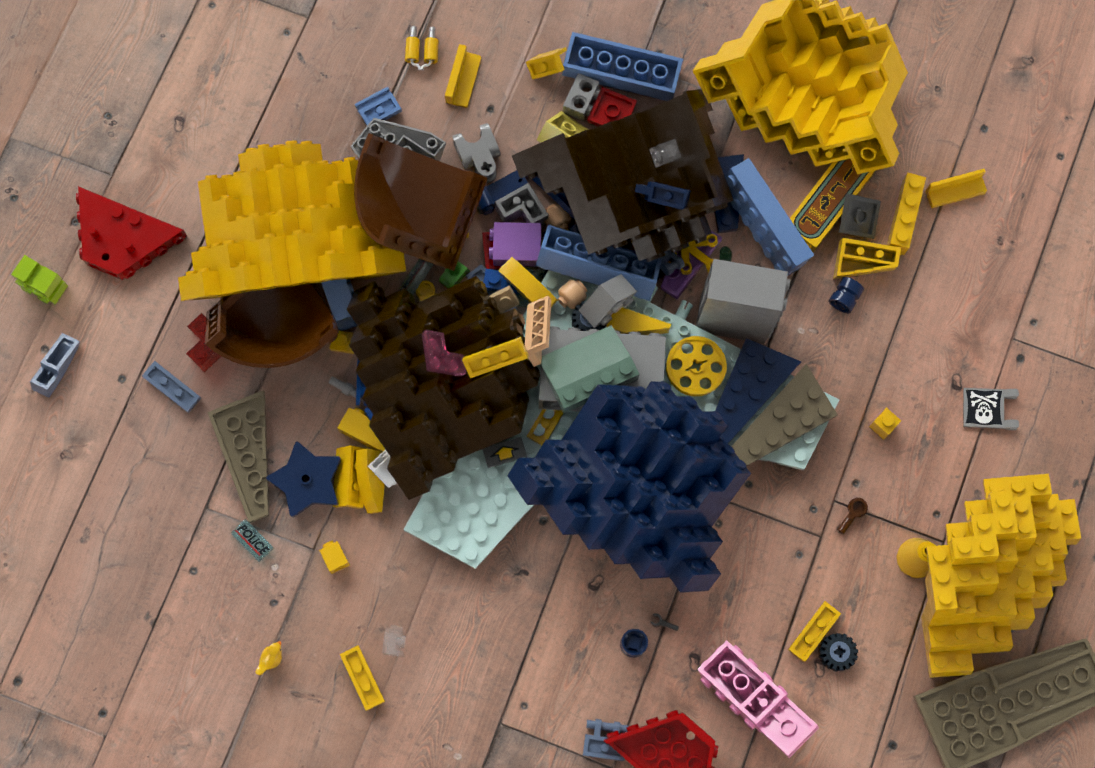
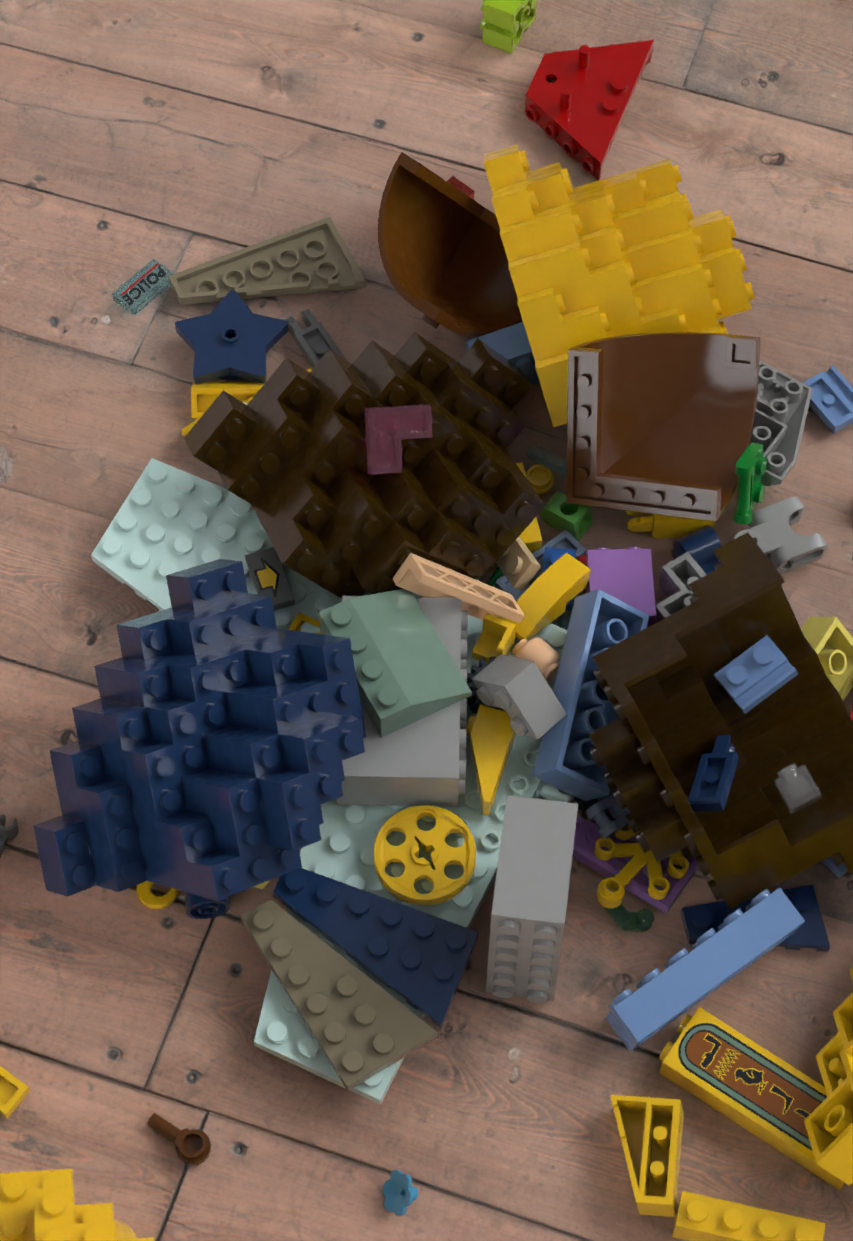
camera: 90 degrees right, 15 degrees down
(54, 365) = (392, 43): sand blue slope -> none
(171, 387) = (365, 175): sand blue plate -> none
(312, 424) = (314, 339): none -> dark grey hinge
(334, 556) = (116, 383): yellow brick -> none
(449, 158) = (750, 490): none -> green plate
(495, 357) = (395, 508): yellow plate -> none
(560, 315) = (495, 639): none -> yellow panel
(596, 166) = (755, 674): none -> medium blue plate
(847, 292) = (578, 1120): dark blue wheel -> none
(860, 216) = (730, 1140): dark grey hinge -> none
(885, 395) = (399, 1192): none -> dark azure plant
(885, 423) = (344, 1190): yellow brick -> none

